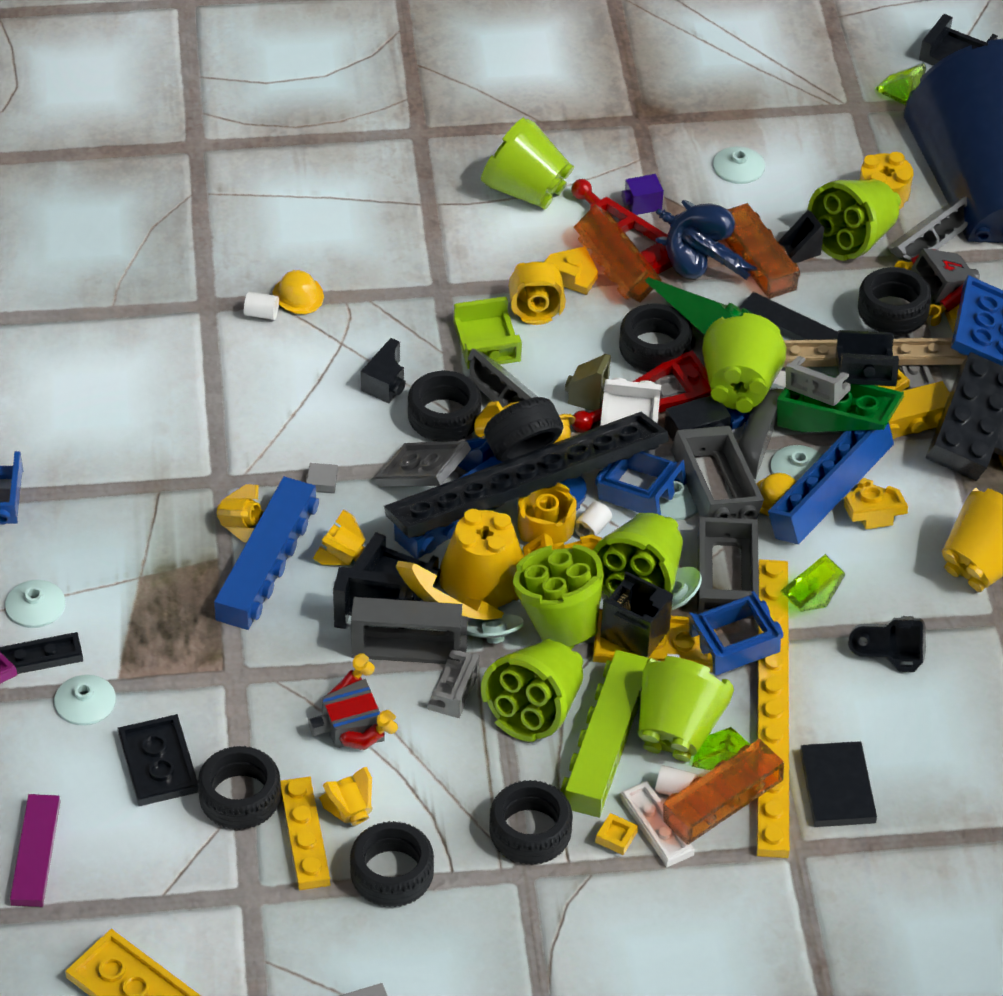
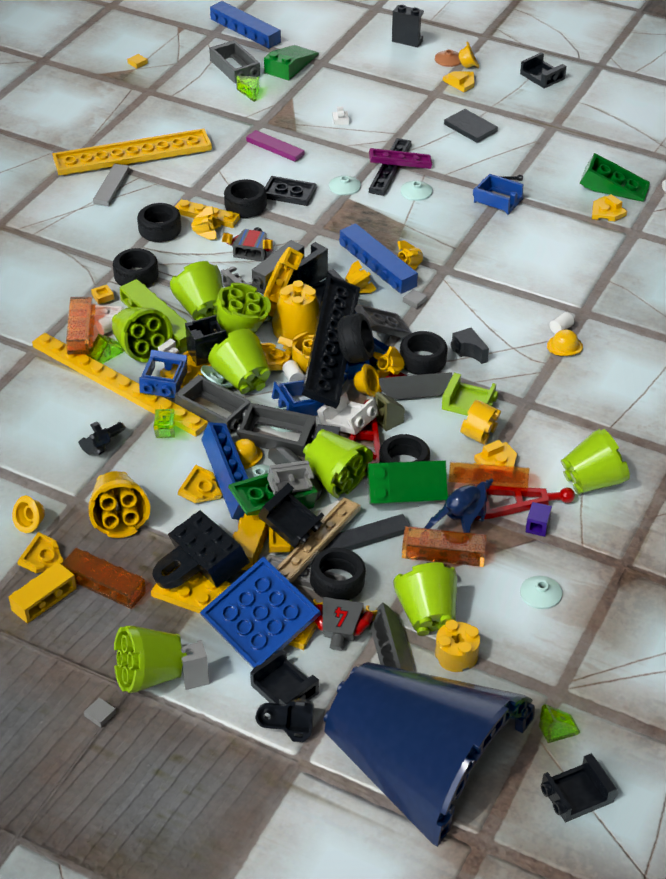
camera: 125 degrees right, 5 degrees down
(838, 784) = (49, 380): black tile -> none

